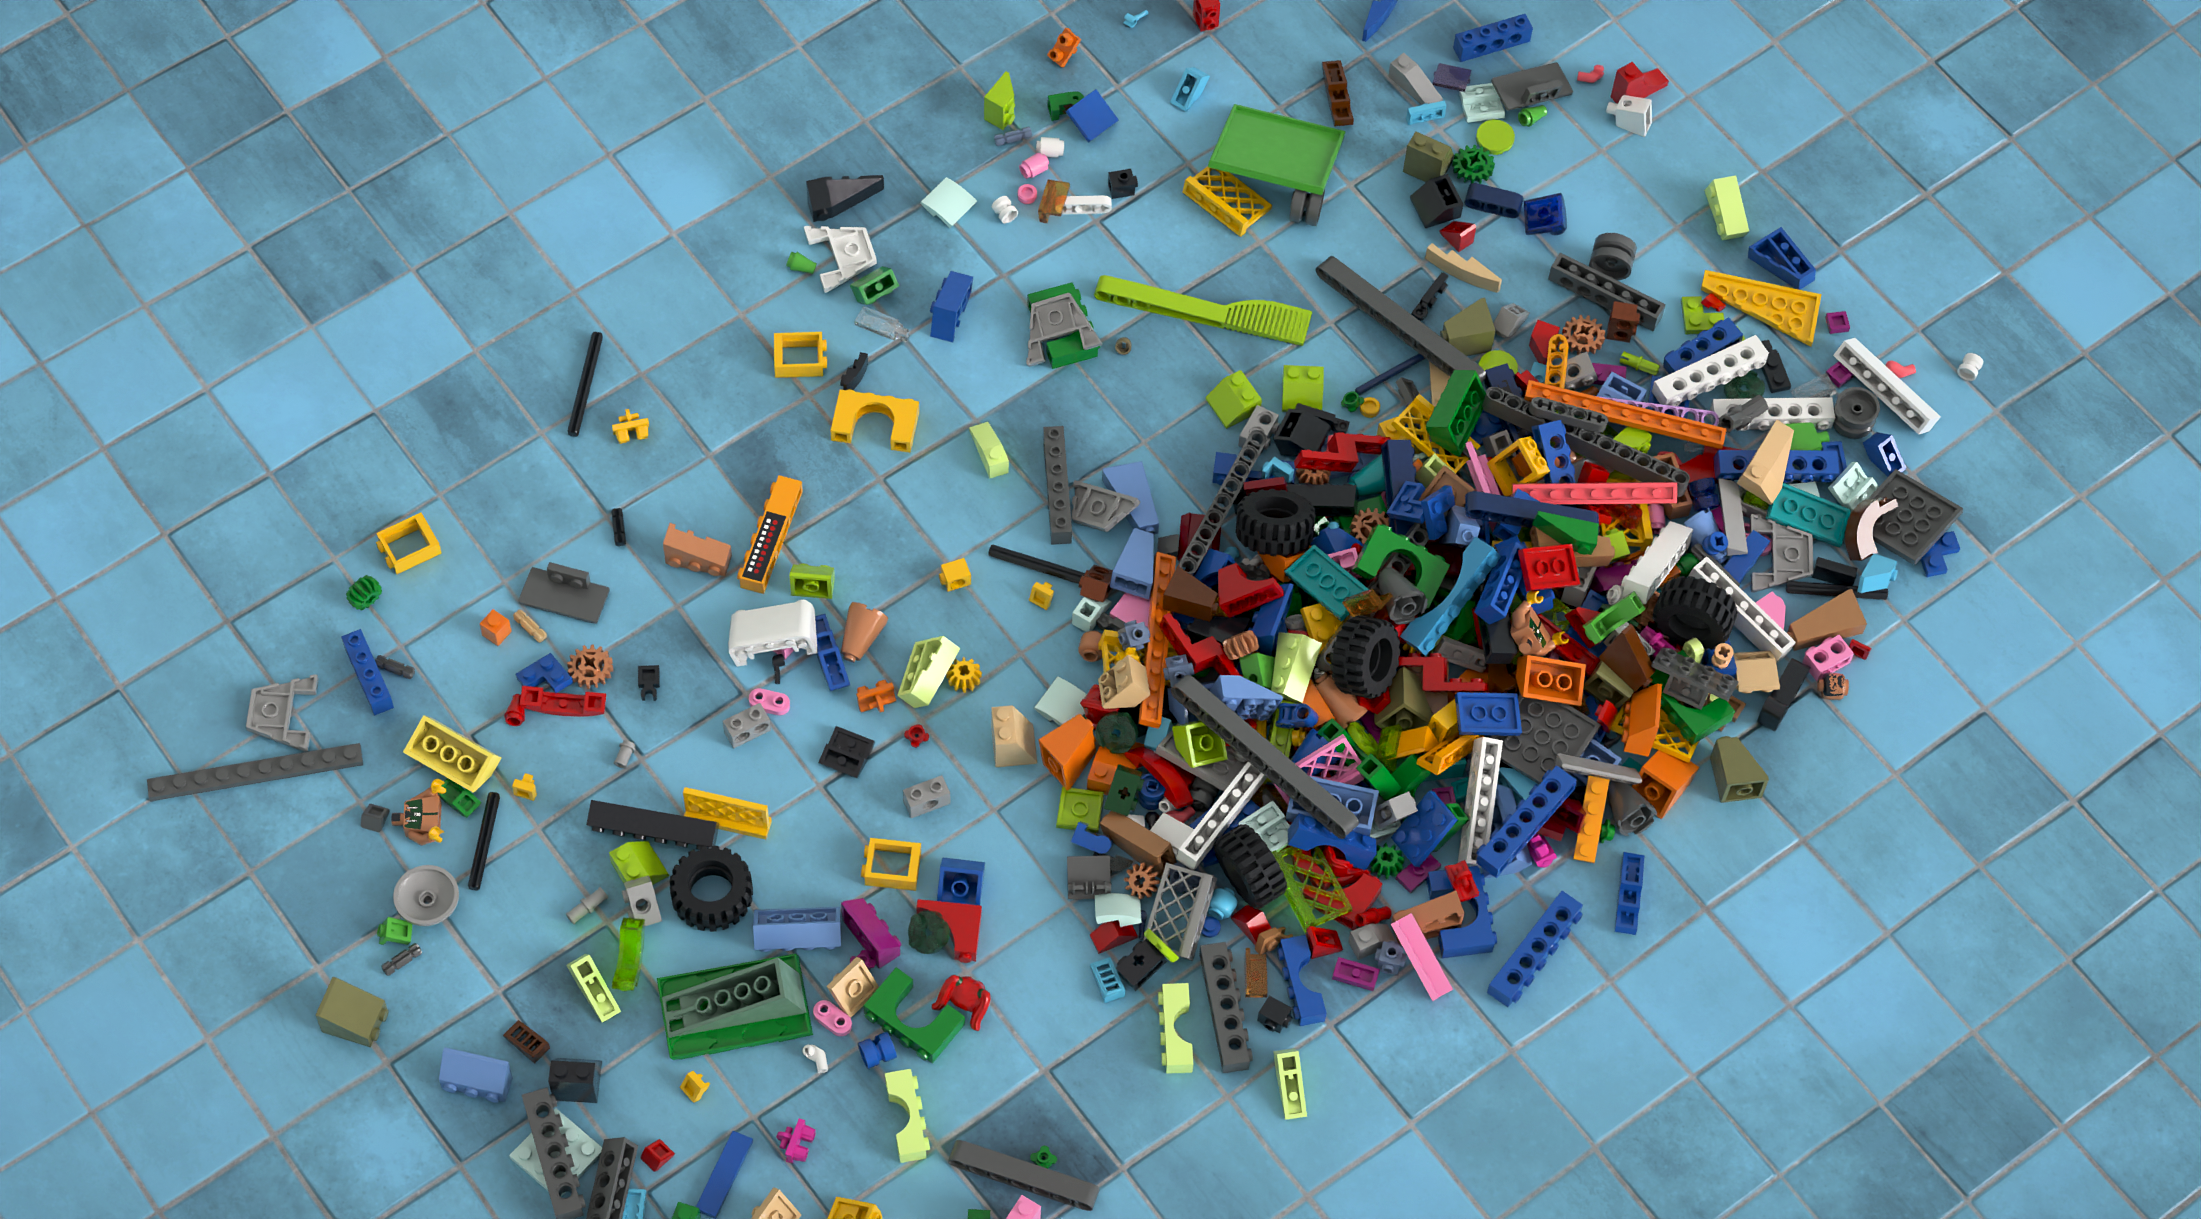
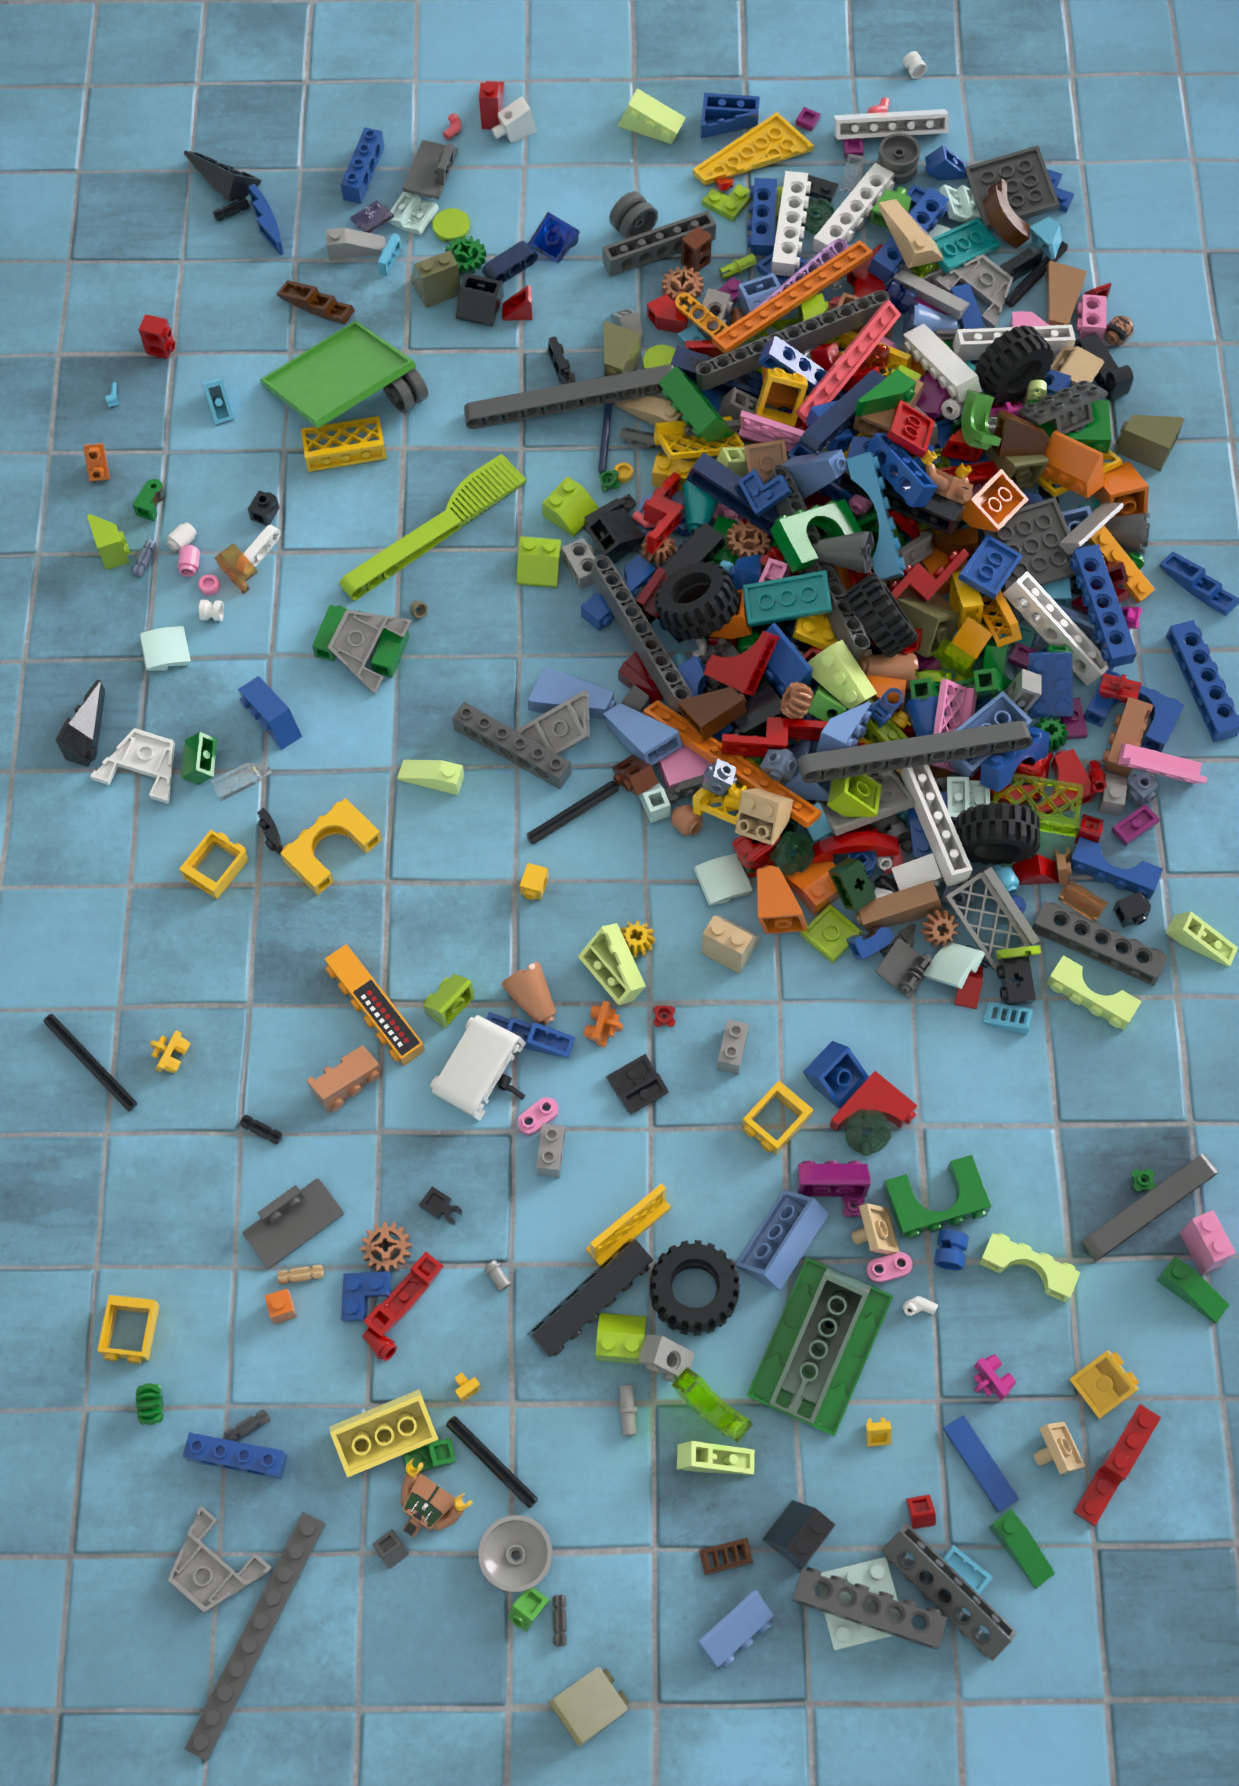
camera: 50 degrees left, 5 degrees up
(800, 263) = (122, 803): bright green cone -> none
(964, 994) = (950, 1139): red hair -> none
(1042, 595) = (607, 827): yellow tile -> none
(1092, 115) = (181, 485): blue slope -> none
(1277, 469) = (640, 569): medium azure bracket -> none
(1365, 602) = (843, 578): clear orange panel -> none
(1434, 509) = (788, 474): blue plate -> none
(1467, 271) = (561, 321): tan slope -> none
(1531, 115) = (454, 189): bright green cone -> none
(1539, 406) = (749, 343): dark grey beam -> none
(1606, 715) = (1048, 488): red slope -> none
(1709, 543) = (948, 317): blue wheel -> none
(1726, 654) = (1057, 376): light nougat bush -> none
(1743, 414) = (847, 225): dark grey piece -> none

